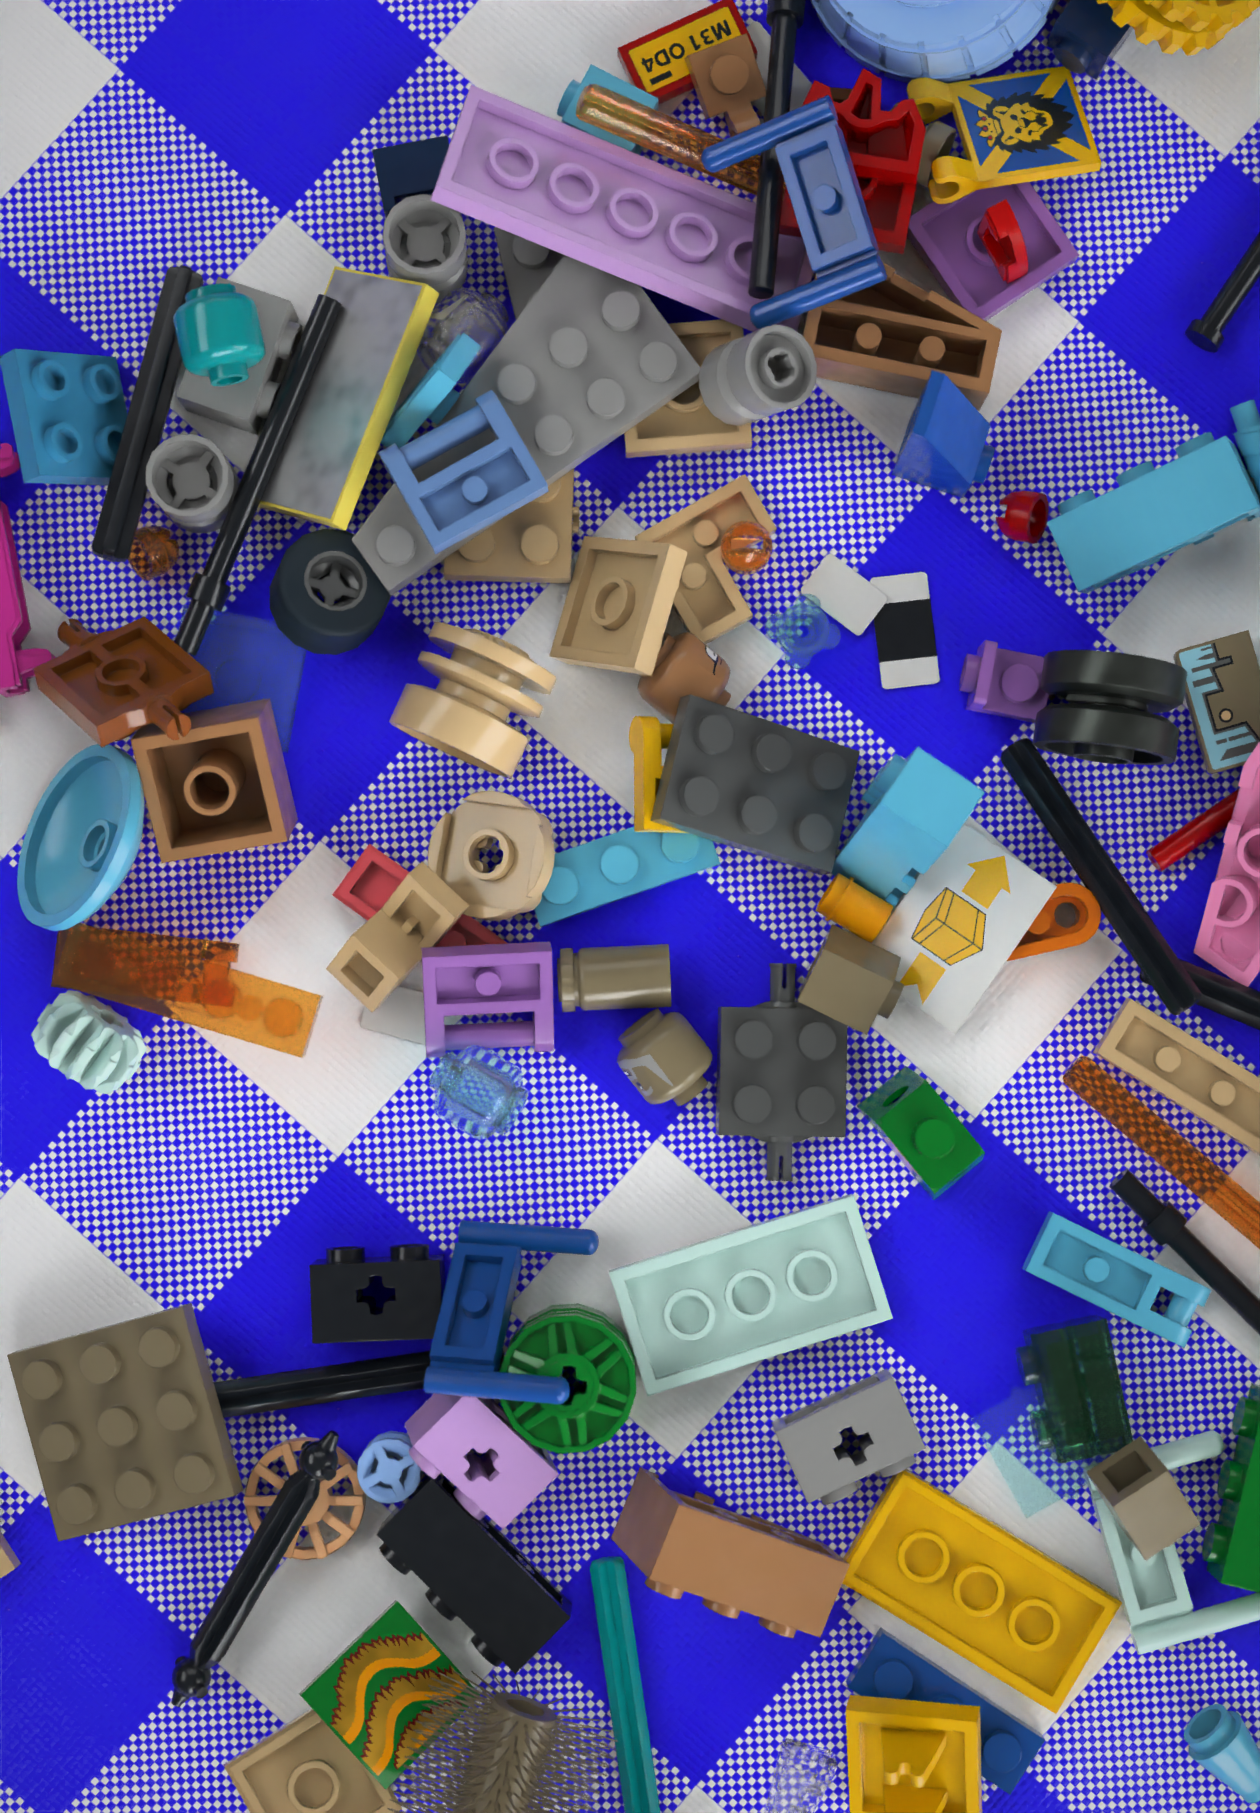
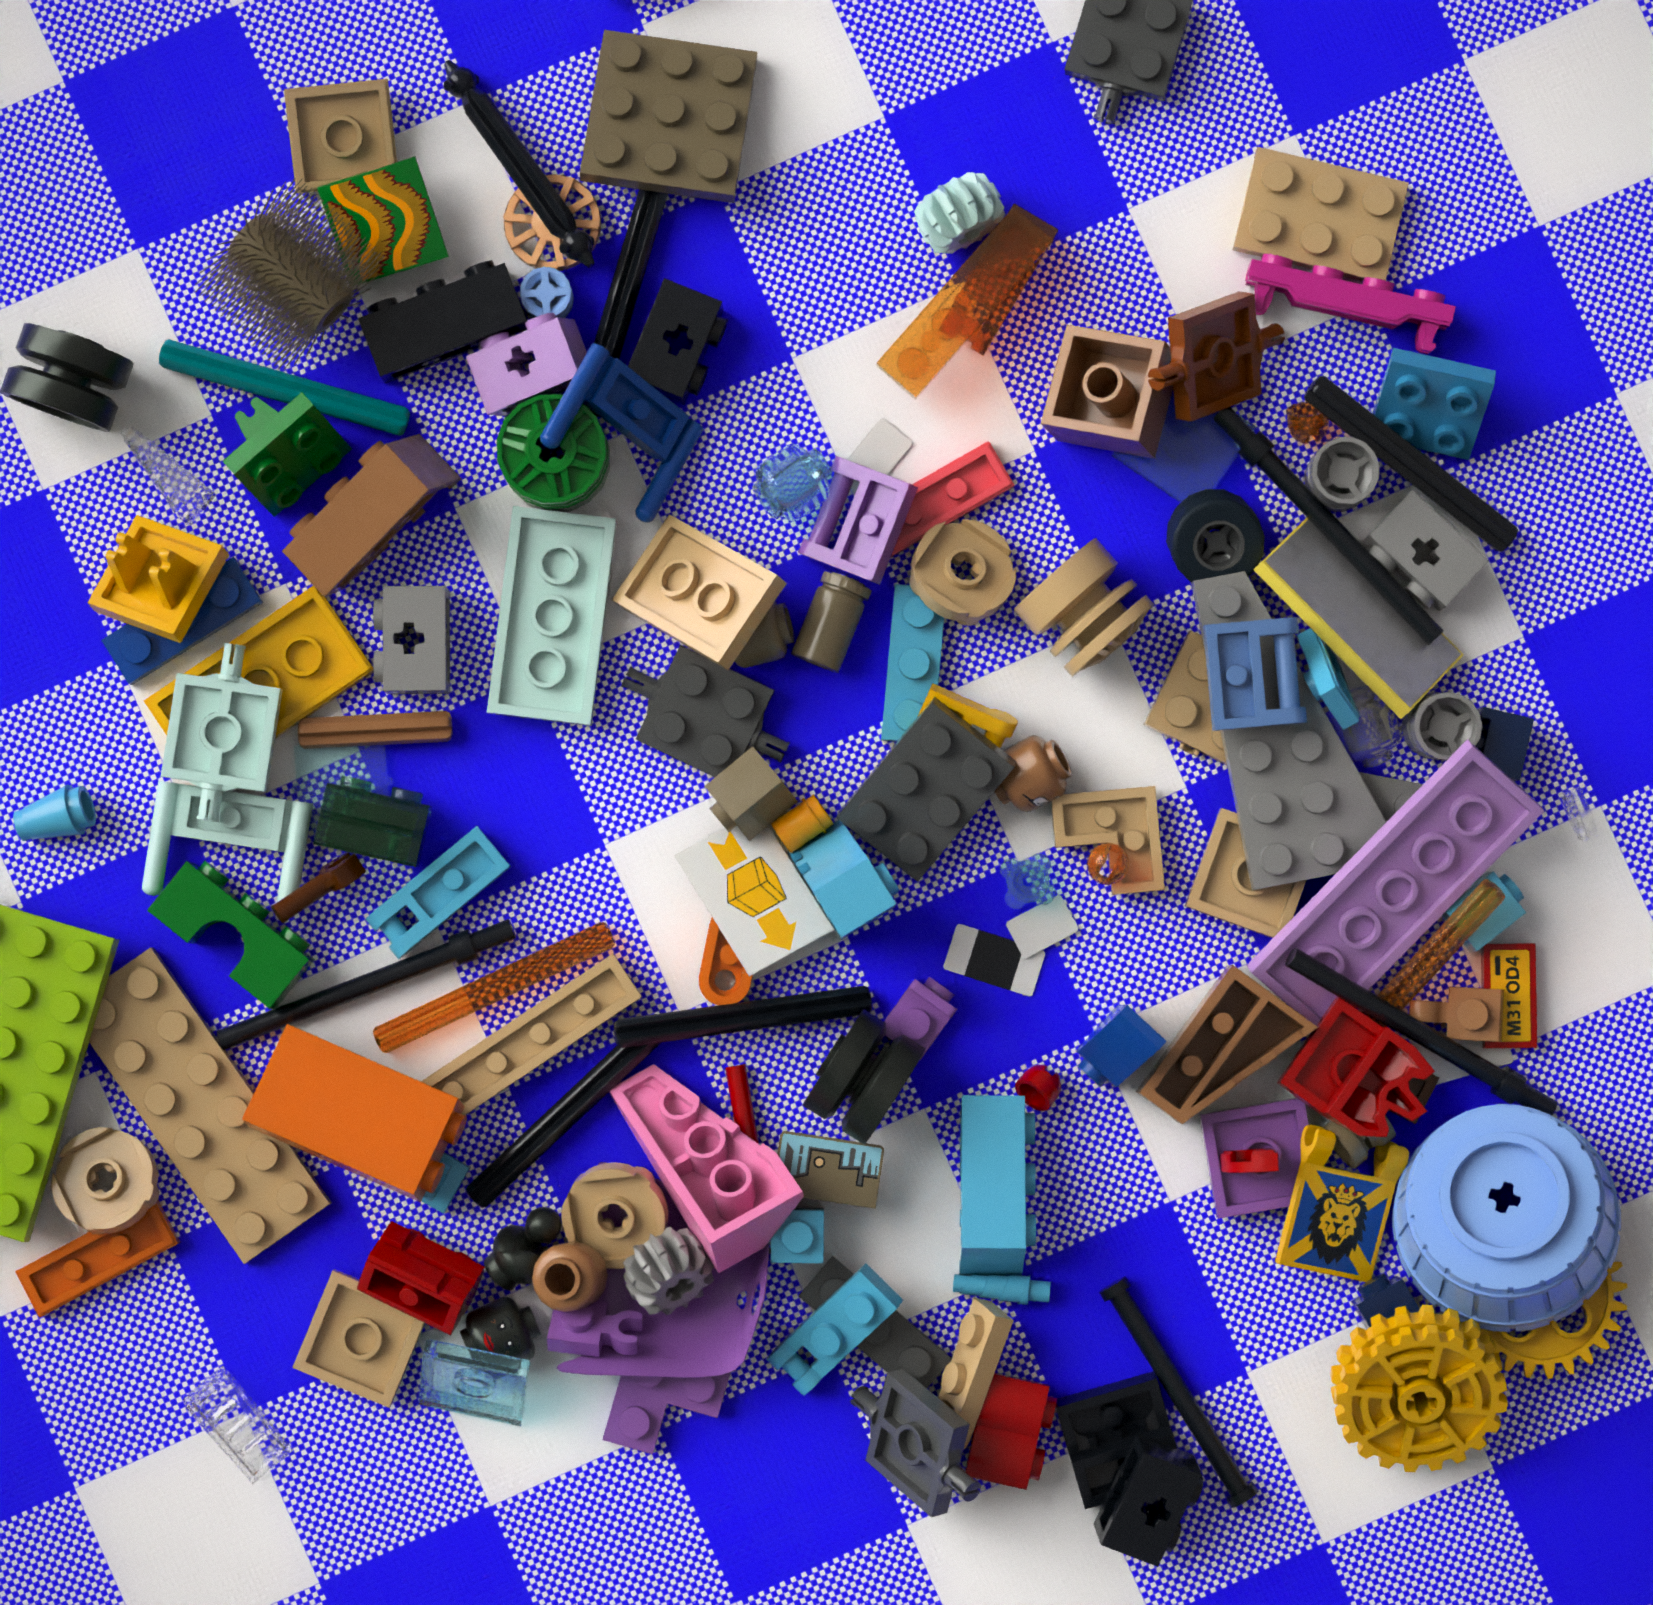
camera: 120 degrees right, 0 degrees up
(81, 838) = (1111, 272): medium azure dish -> none
(219, 334) = (1438, 540): teal head -> none
(391, 941) = (933, 468): tan slope -> none
(454, 61) = (1579, 814): none -> clear tile
(618, 604) = (1107, 748): tan plate -> none
(651, 1139) = (699, 591): none -> tan plate
(706, 1687) = (284, 451): none -> green plate
(758, 375) = (1230, 926): light grey wheel -> none
(824, 203) = (1336, 1031): blue plate -> none
(922, 1131) = (612, 795): green torso -> none
(968, 1435) = (375, 729): none -> medium nougat axle
(1056, 1610) = (221, 732): none -> light aqua plate
(1143, 1498) = (275, 830): dark tan brick -> none
(1155, 1405) = (331, 877): none -> reddish brown bar

